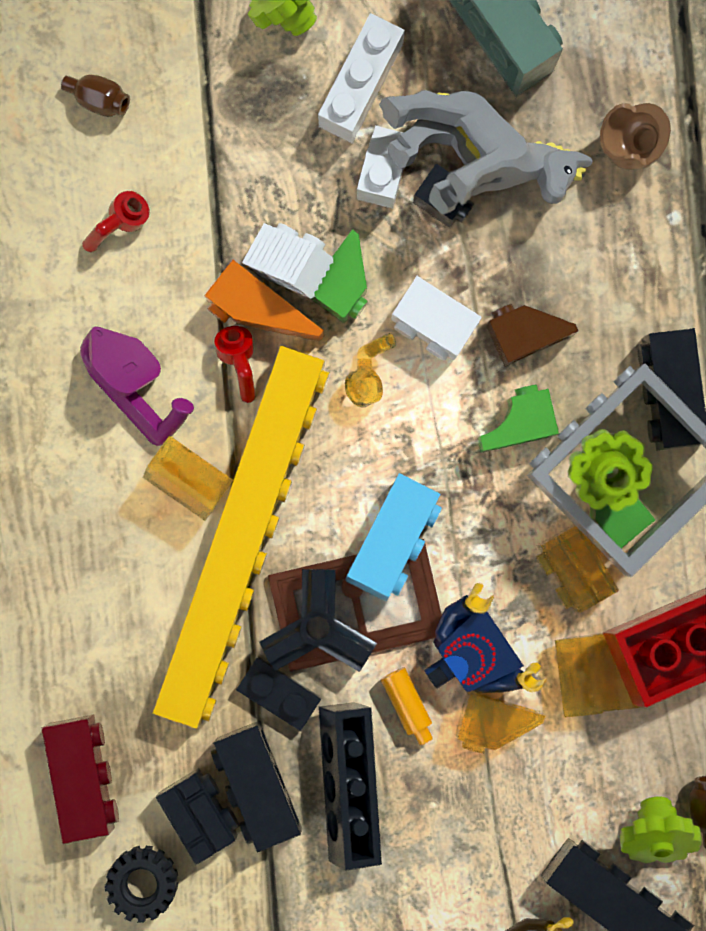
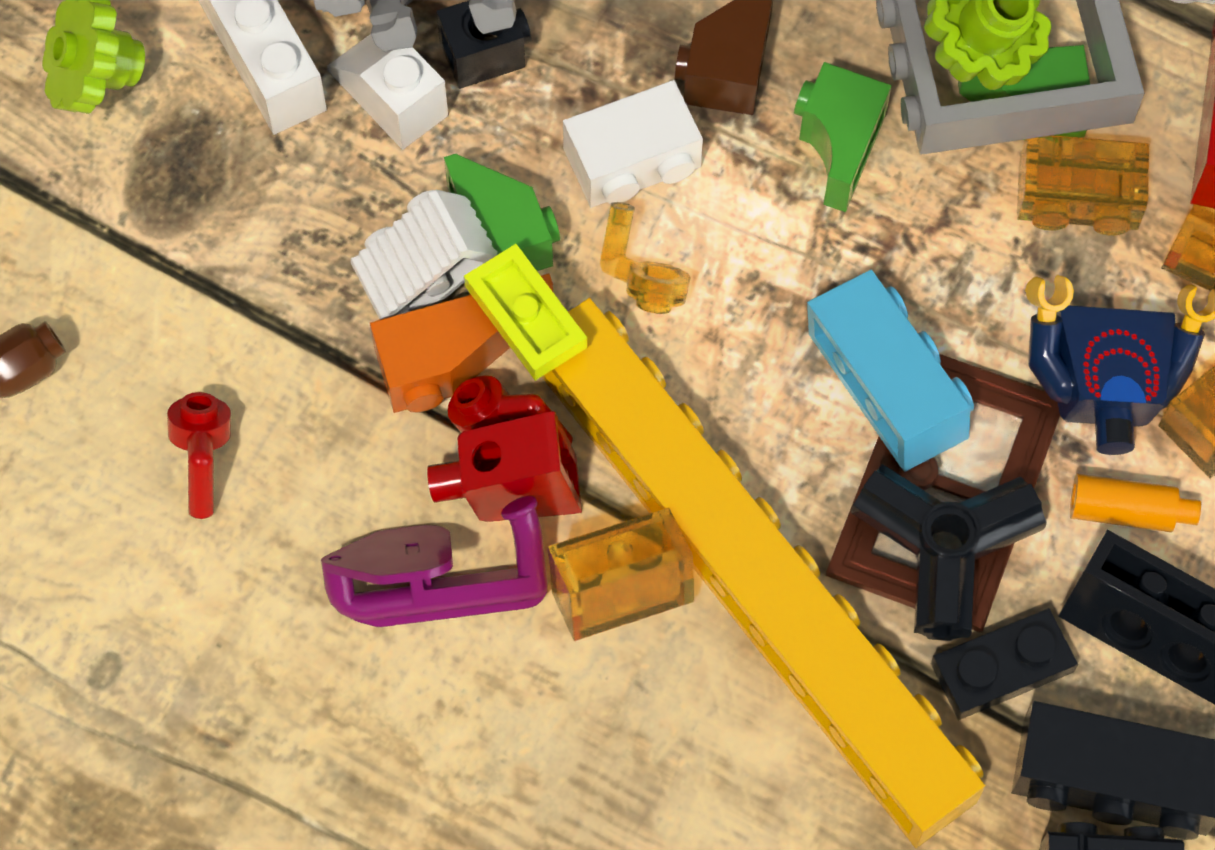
camera: 55 degrees left, 20 degrees down
(204, 386) = (509, 463): none -> red torso
(287, 335) = (525, 311): none -> neon yellow plate

